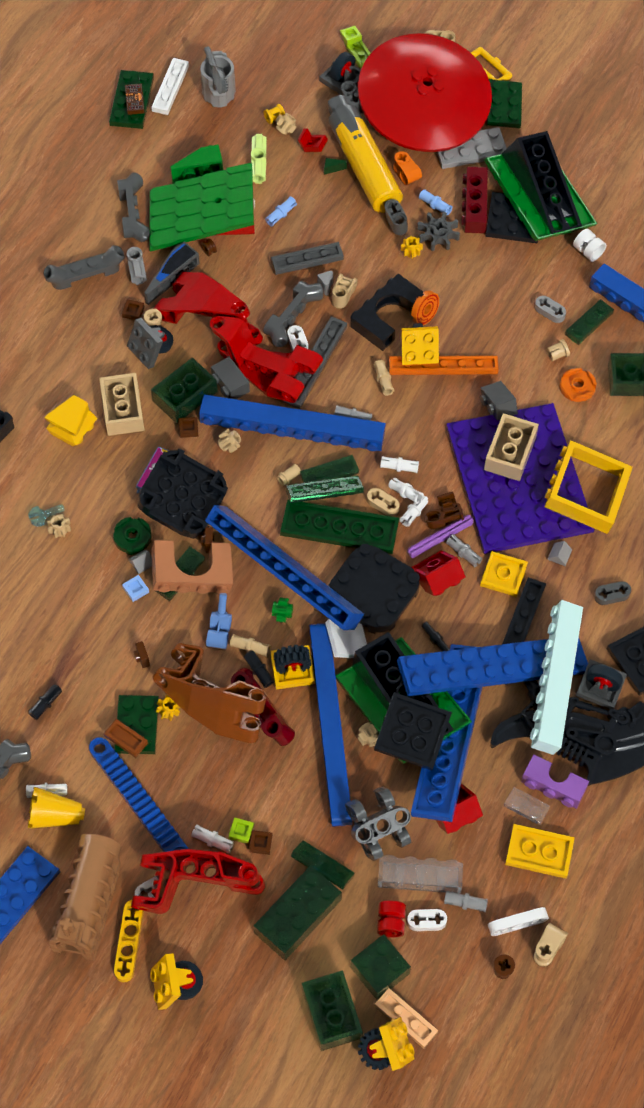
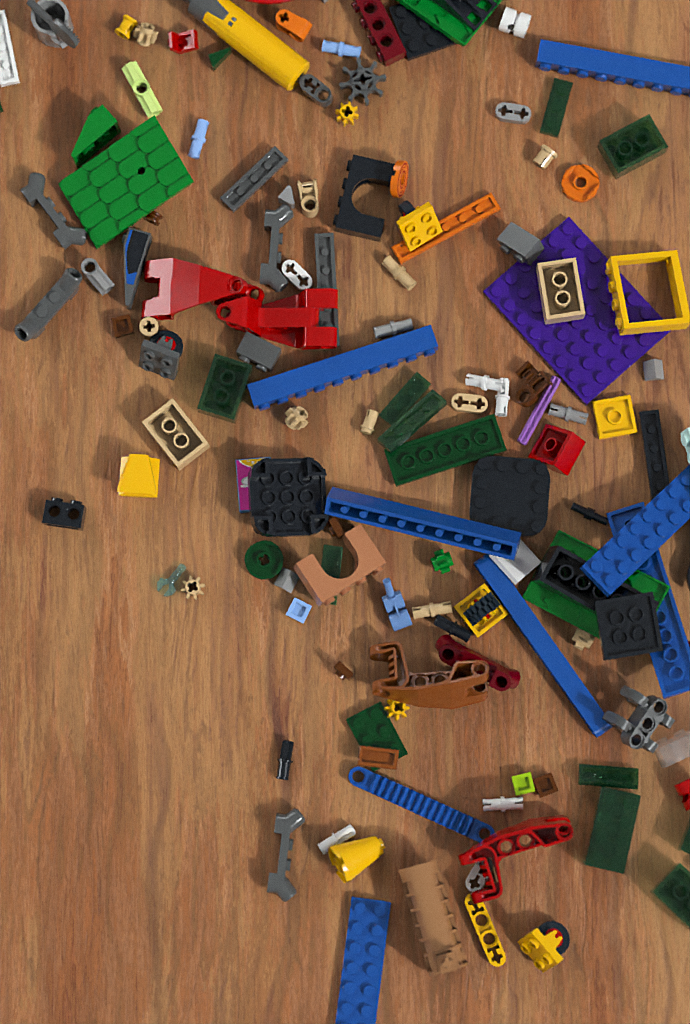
camera: 25 degrees left, 20 degrees up
(188, 427) = (249, 422): reddish brown plate -> none
(399, 464) = (463, 356): white pin -> none

